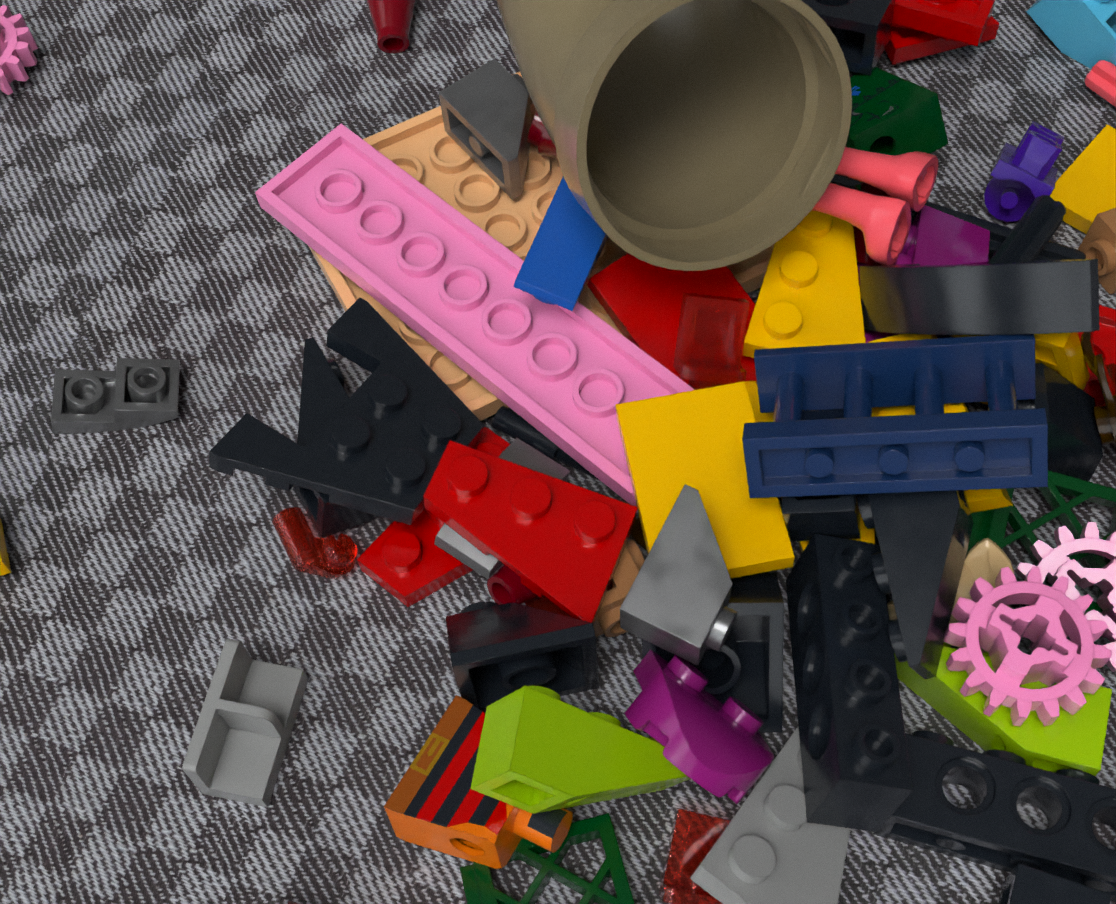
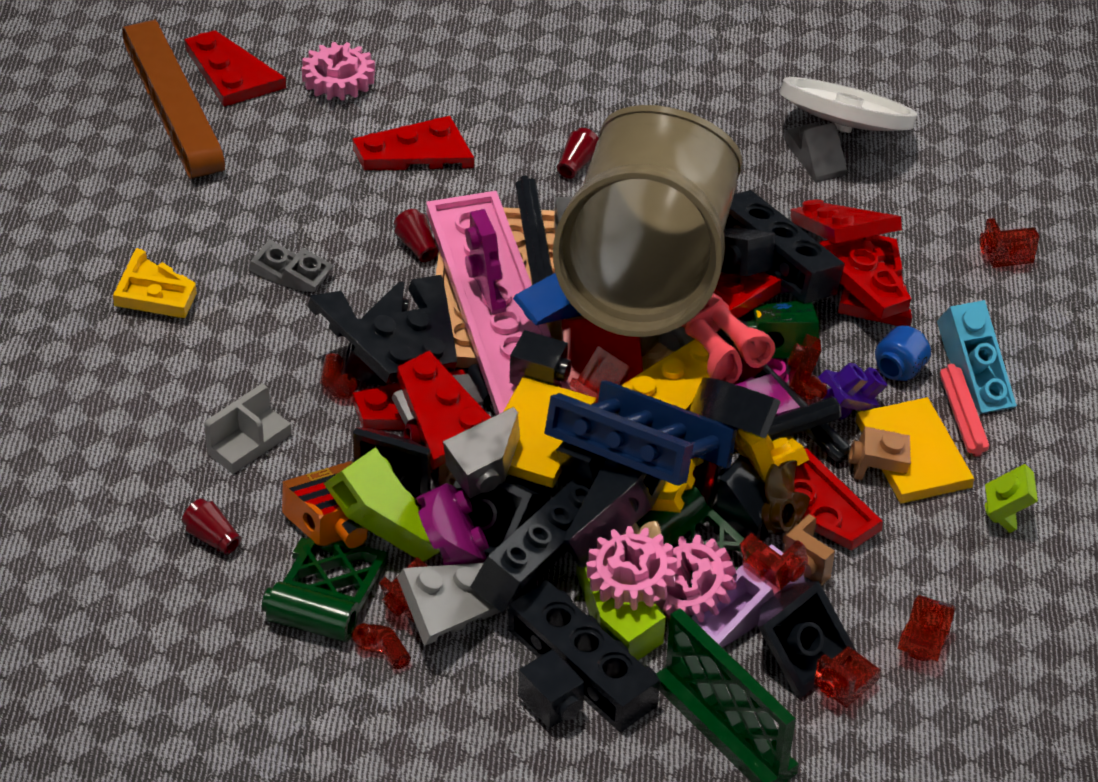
camera: 25 degrees right, 15 degrees down
(163, 105) = (420, 143): none -> red wing
(262, 245) = (415, 233): none -> dark red cone
(427, 245) = (484, 259): none -> magenta wing
(443, 167) = (533, 229): none -> black axle
(624, 365) = (540, 359): none -> black brick
(956, 153) = (803, 360): none -> clear red bracket
(1032, 79) = (902, 353): none -> blue head

